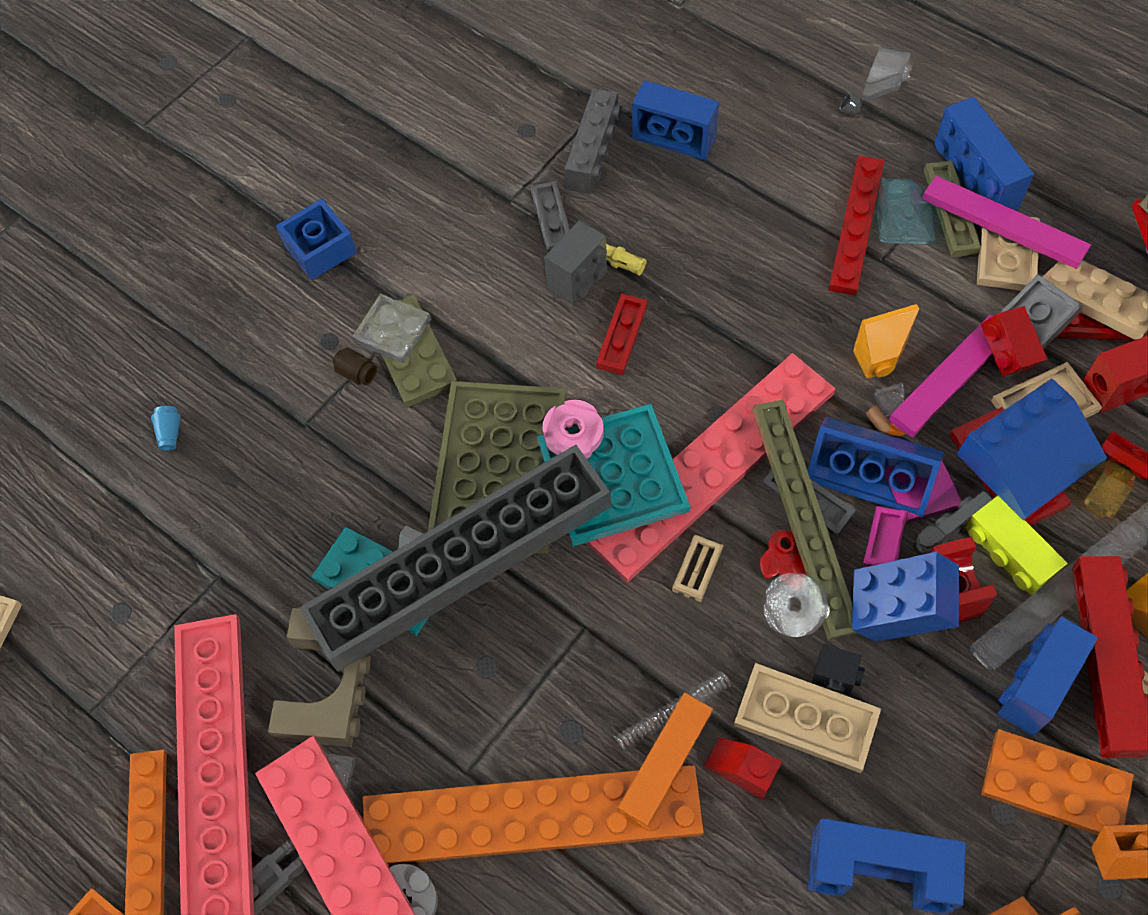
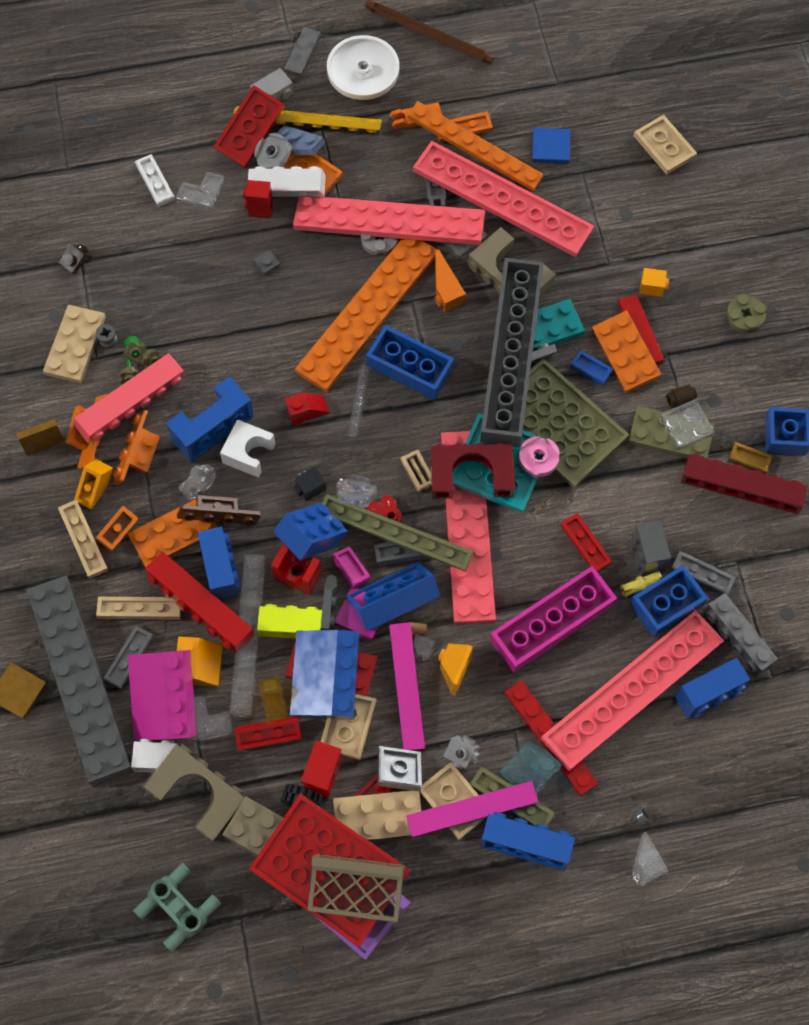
camera: 125 degrees right, 5 degrees up
(68, 786) = (551, 145): none -> blue tile
(166, 426) = (719, 288): dark azure cone -> none
(180, 367) = (751, 305): none -> olive plate
(213, 499) = (653, 282): none -> light orange brick
(293, 472) = (640, 320): none -> red tile
(338, 463) = (626, 352): none -> orange plate
(375, 262) = (750, 458): none -> pearl gold tile
(391, 487) = (591, 367): none -> blue tile
(413, 738) = (448, 289): none -> orange slope
(416, 244) = (744, 483): none -> dark red brick
(569, 685) = (410, 362): none -> blue brick
(621, 212) = (668, 601): none -> blue brick
(665, 760) = (338, 375): orange tile -> none
(673, 518) = (495, 457): none -> dark red arch
(742, 183) = (631, 690): none -> coral plate
(742, 295) = (552, 619): none -> dark pink brick
(808, 717) = (301, 452): tan plate -> none
(876, 802) = (240, 442): none -> white piece
(960, 273) = (462, 752): none -> light grey brick
(977, 803) = (199, 479): none -> clear plate
(985, 744) = (218, 510): none -> reddish brown bracket
(1013, 341) = (393, 732): red brick -> none

